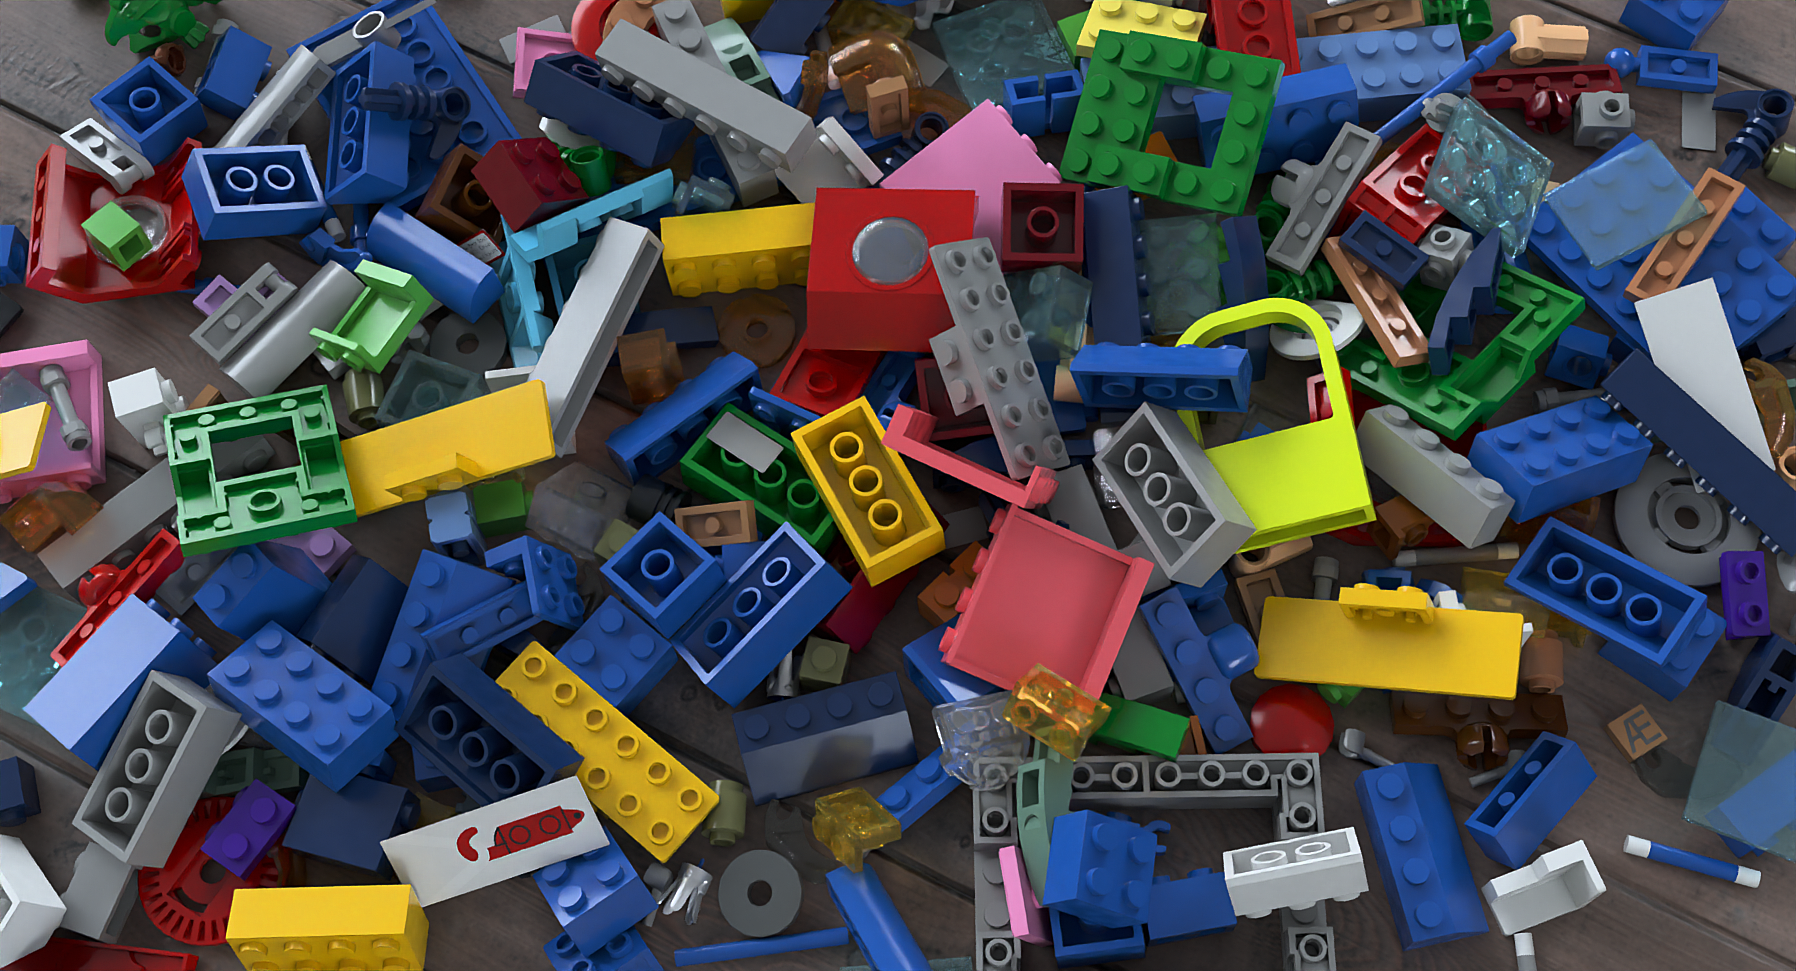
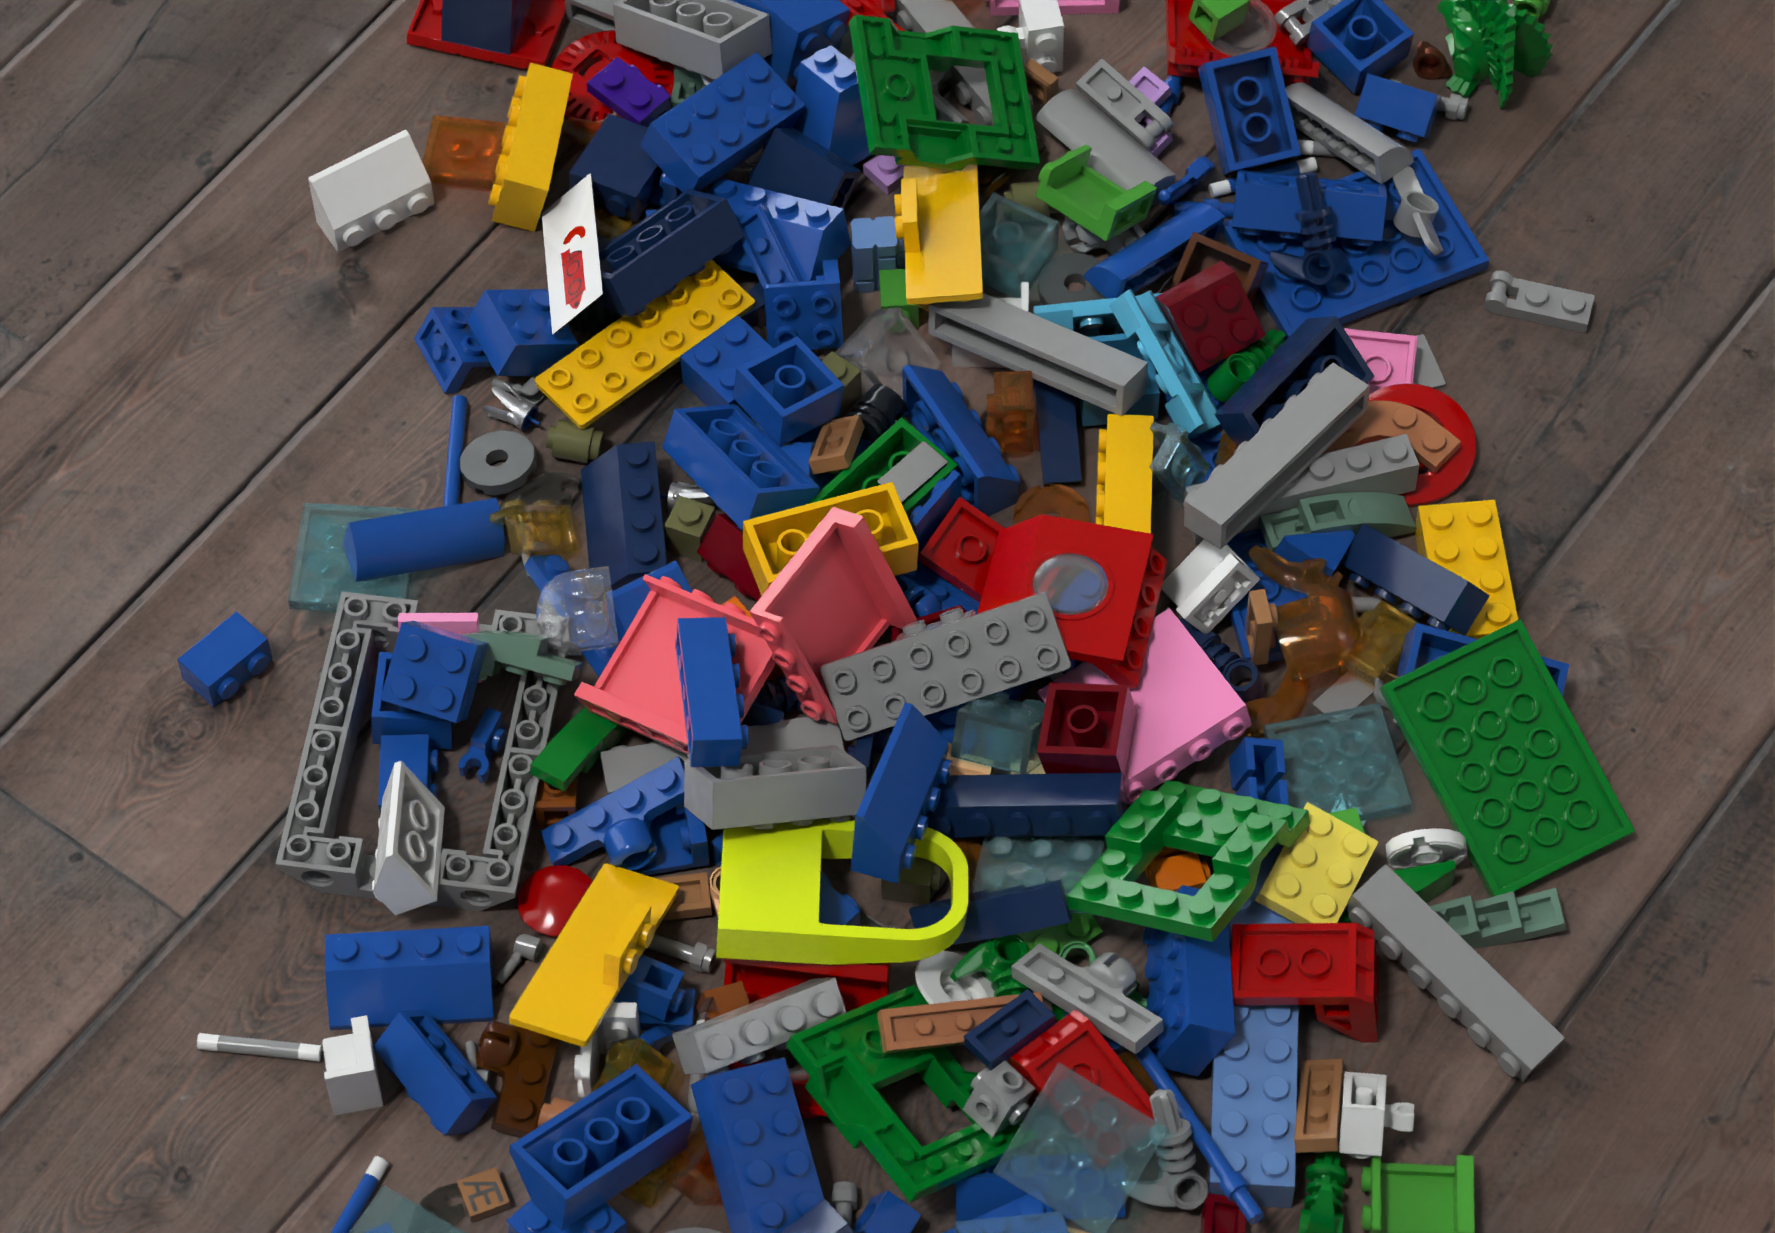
camera: 95 degrees right, 10 degrees down
(1055, 711) = (585, 656): clear yellow bracket -> none
(1095, 558) = (709, 692): none -> blue brick
(1469, 295) = (951, 1103): dark blue slope -> none

